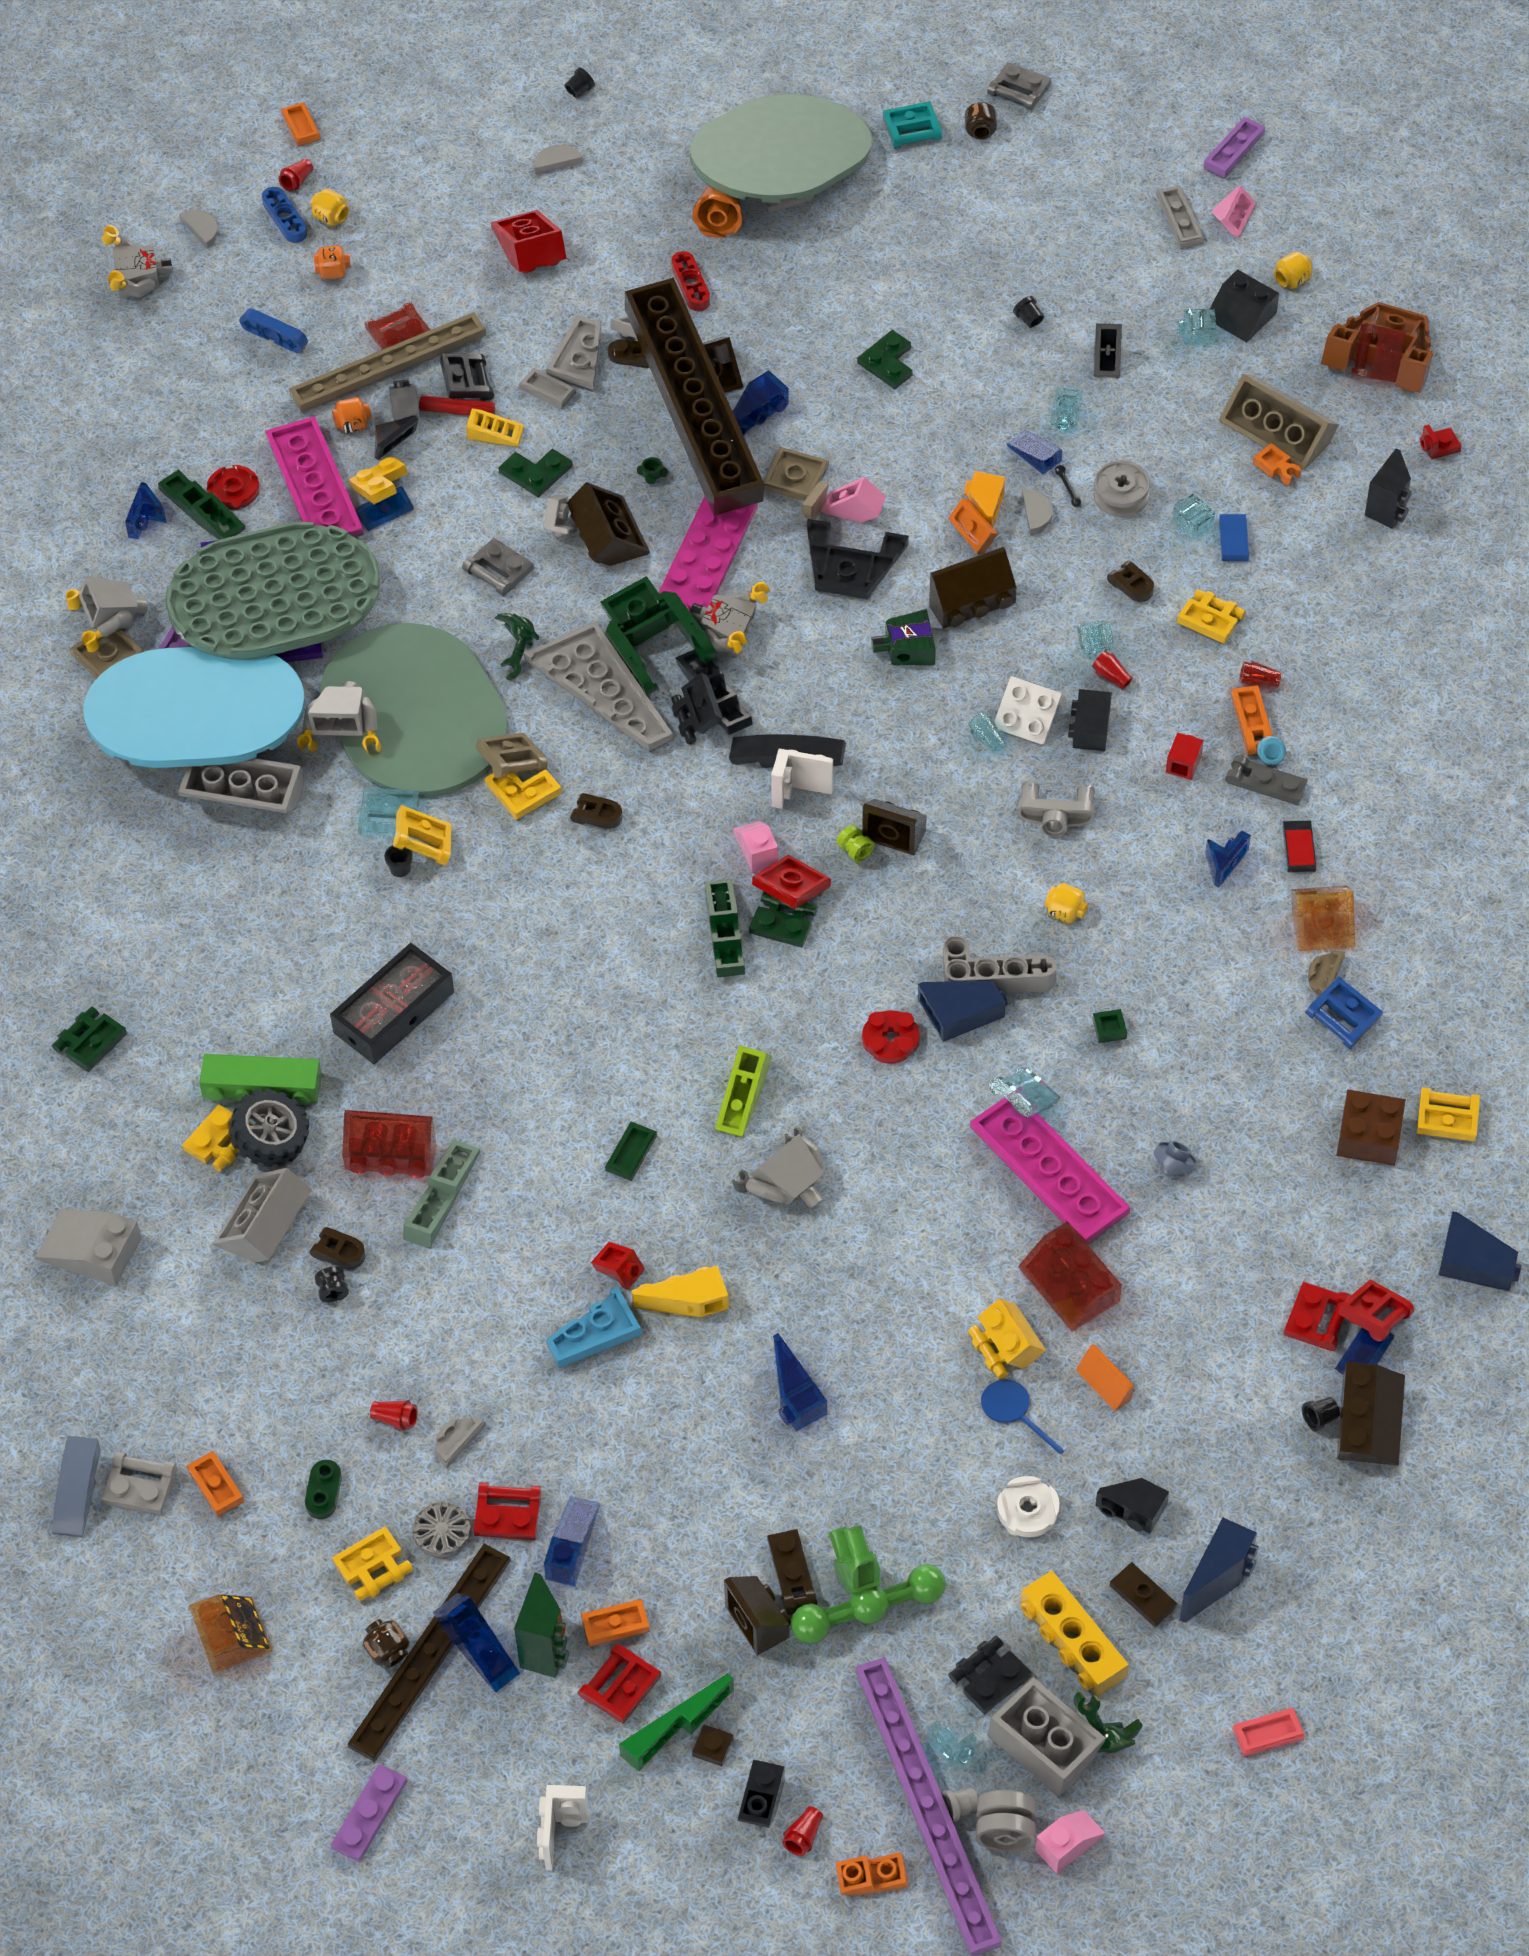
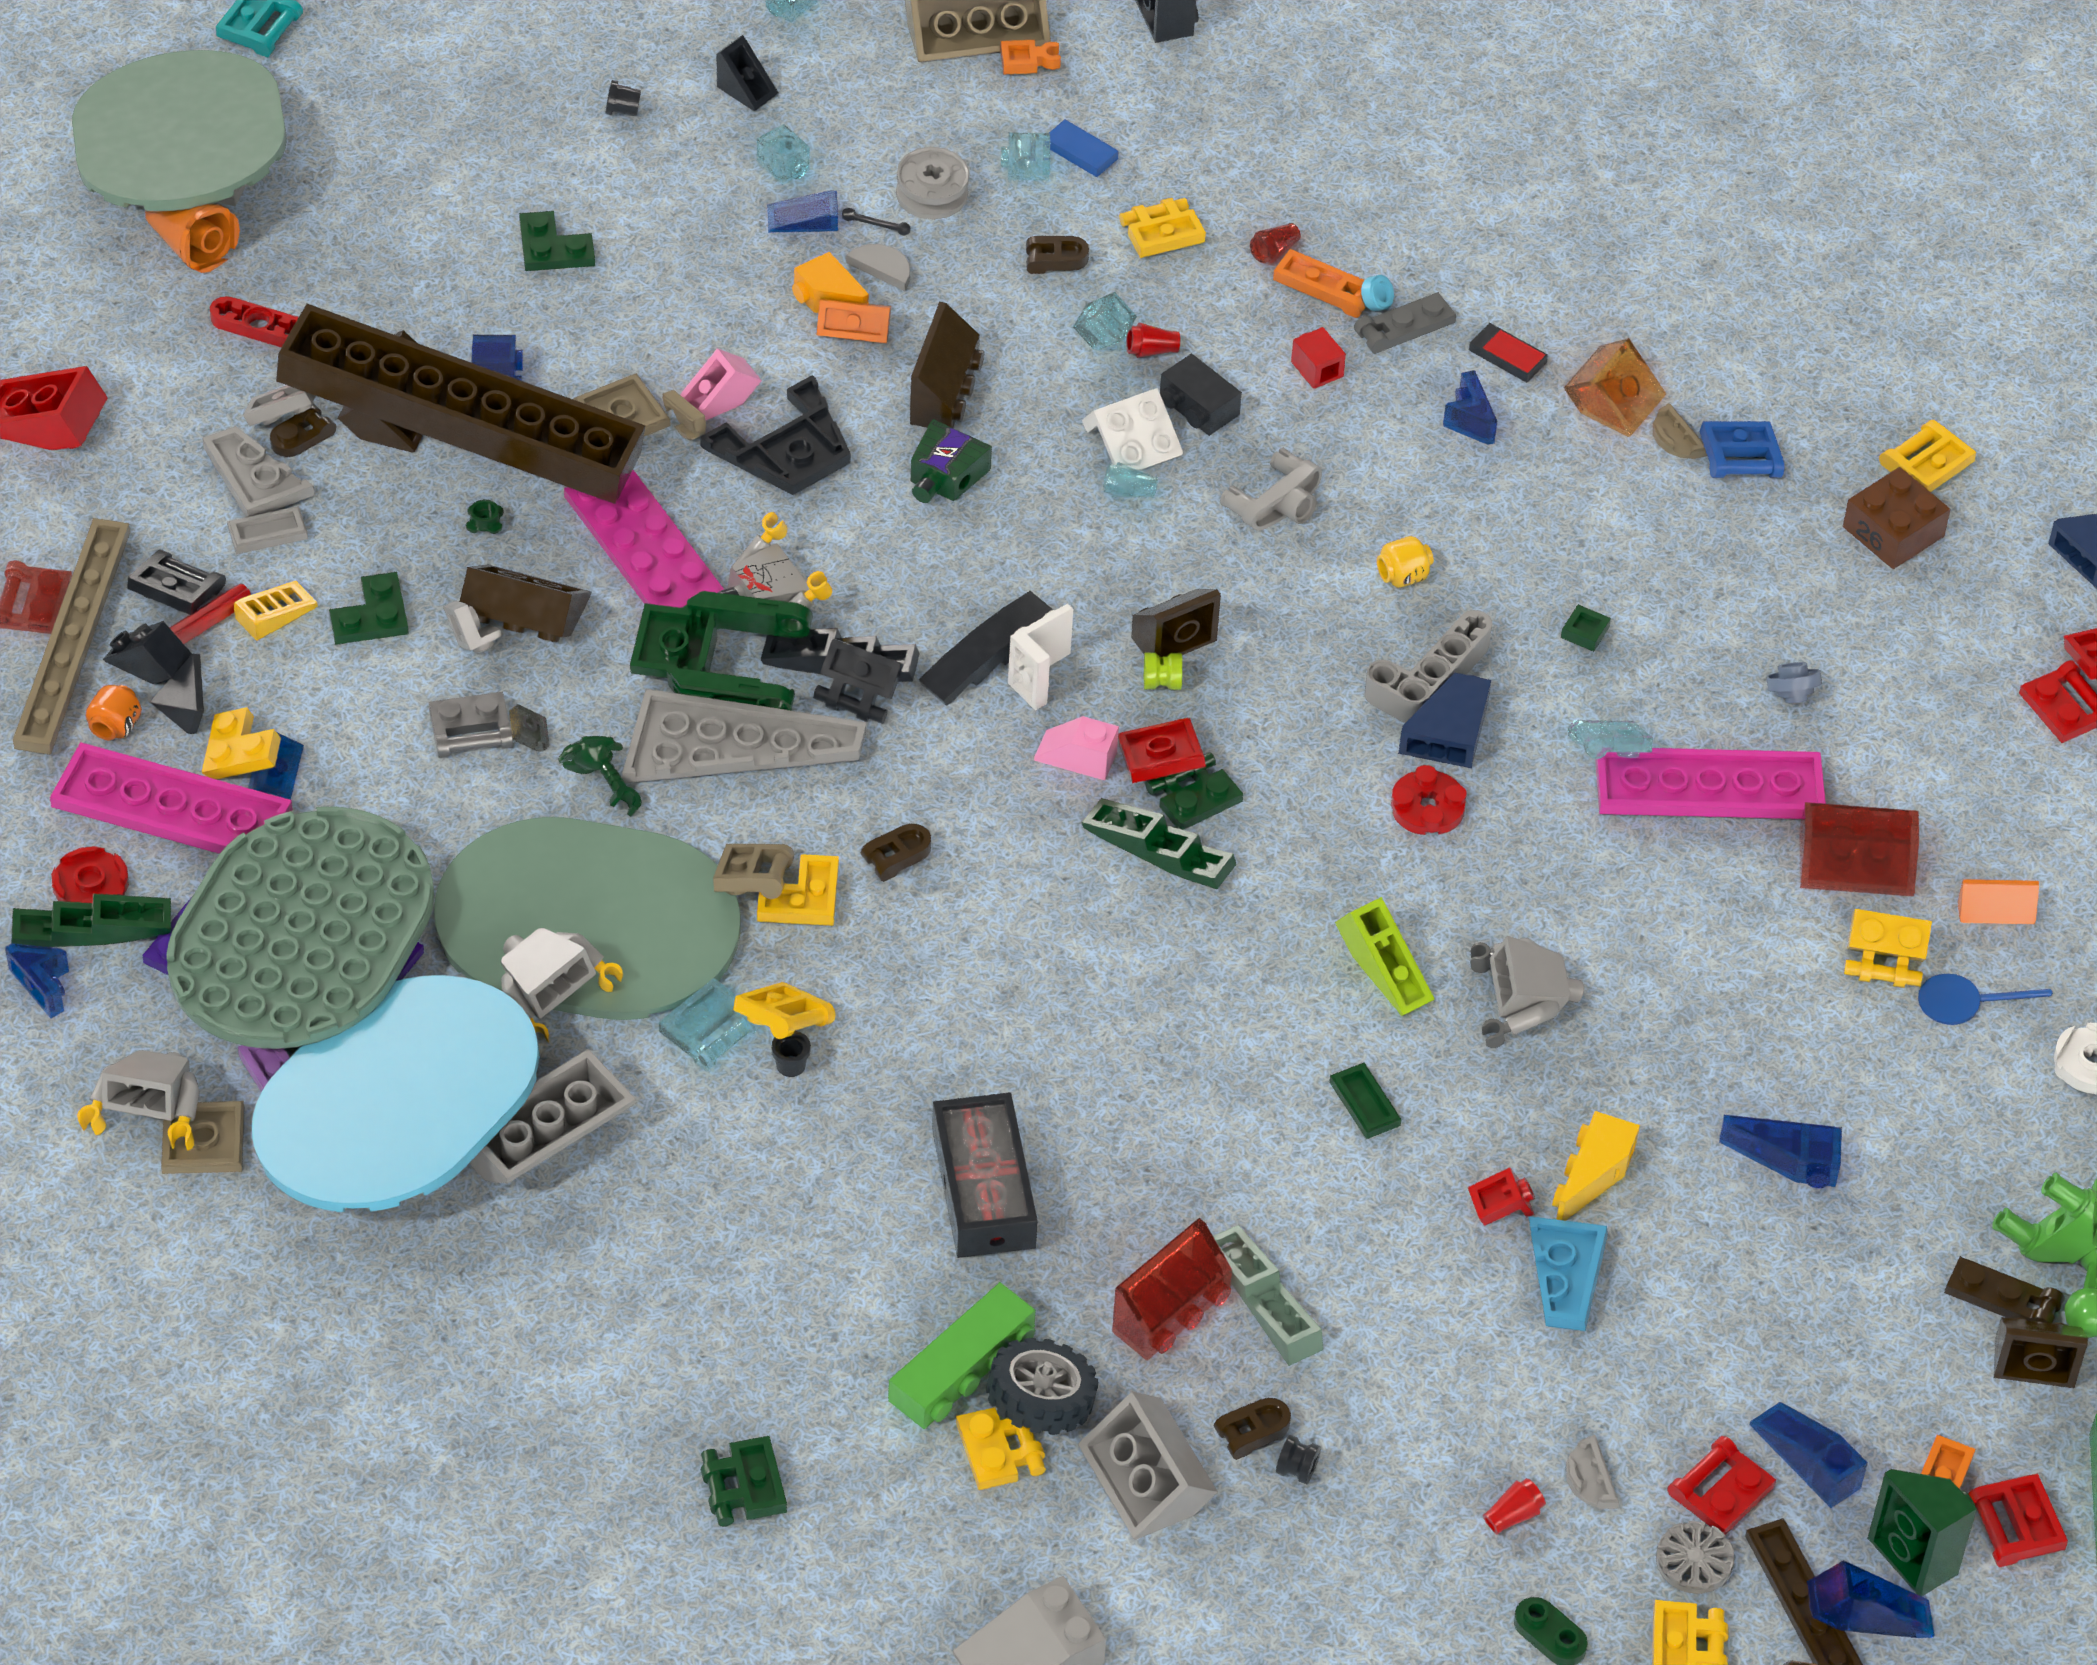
camera: 55 degrees left, 5 degrees down
(517, 592) = (529, 728): none -> clear smoke tile

